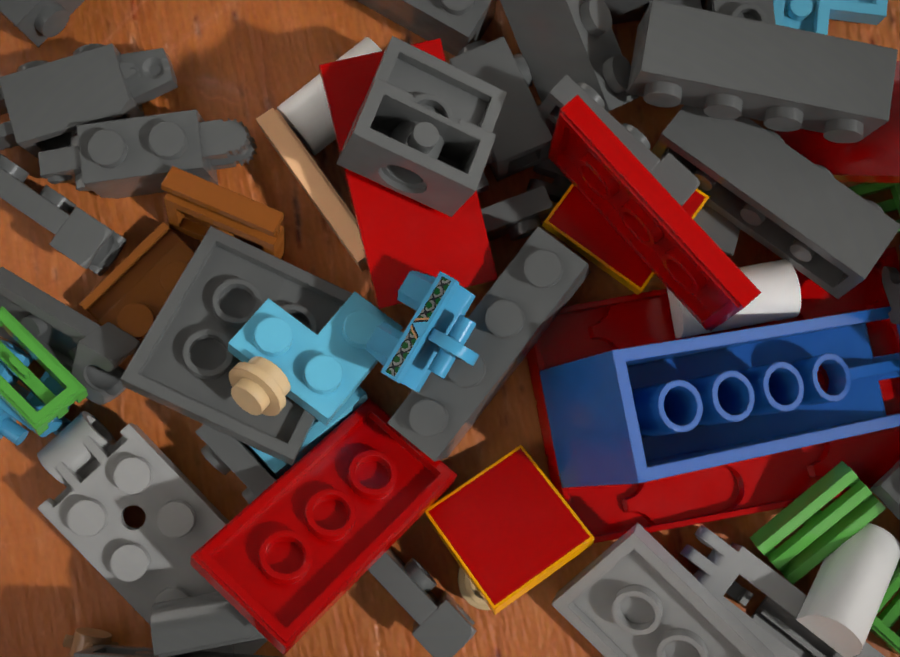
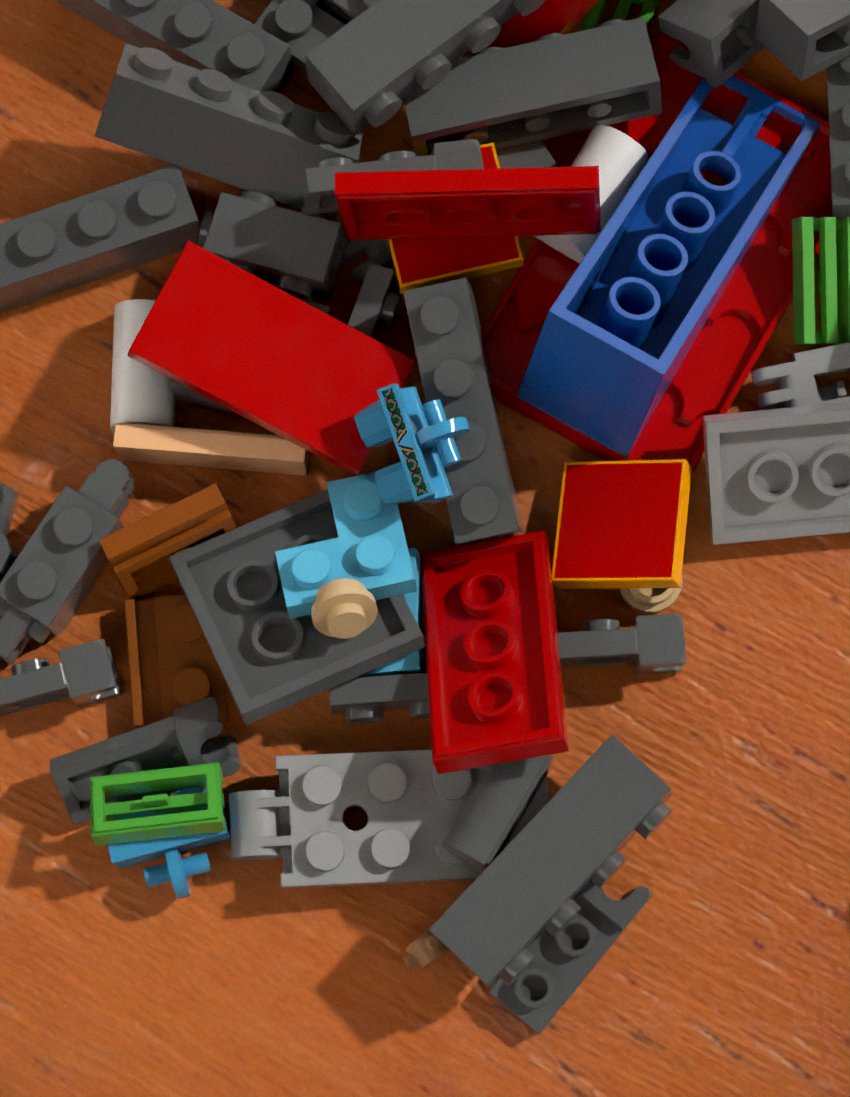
camera: 40 degrees left, 5 degrees down
(423, 128) = (254, 311): dark grey brick -> none

